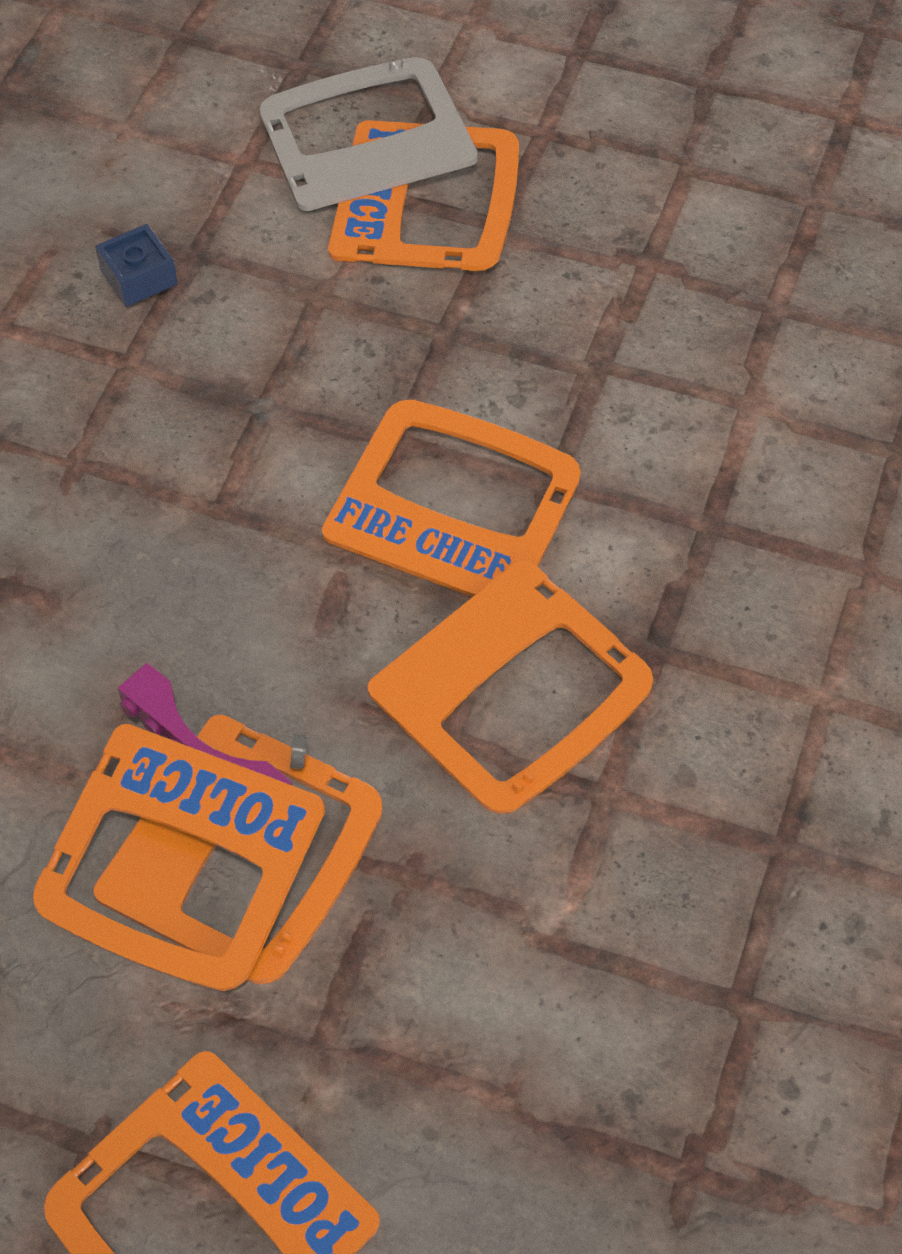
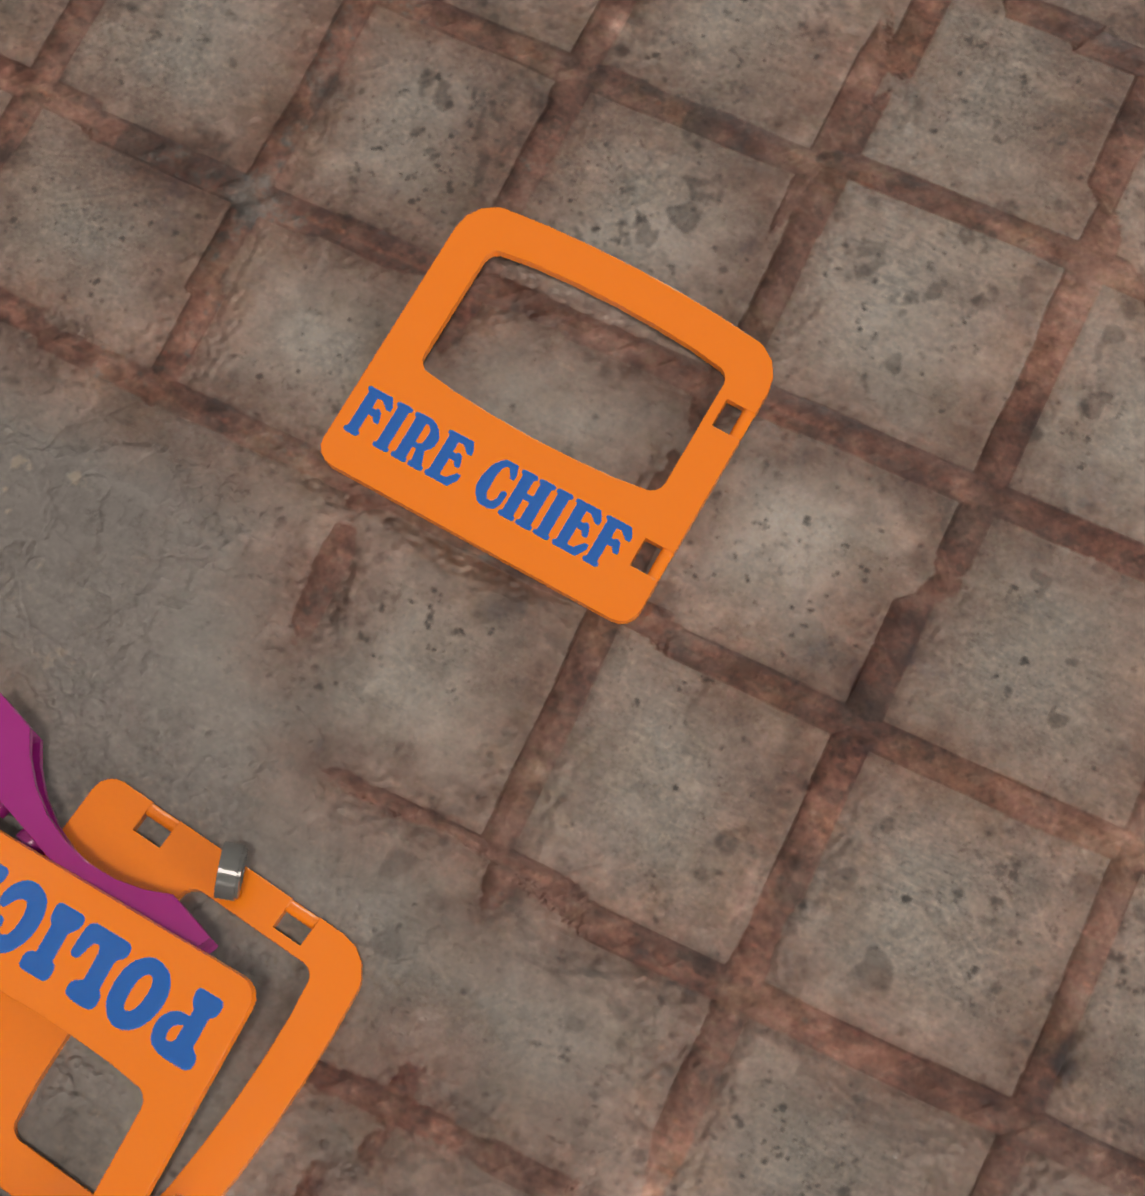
camera: 10 degrees right, 15 degrees up
(474, 644) = (539, 698): orange door -> none

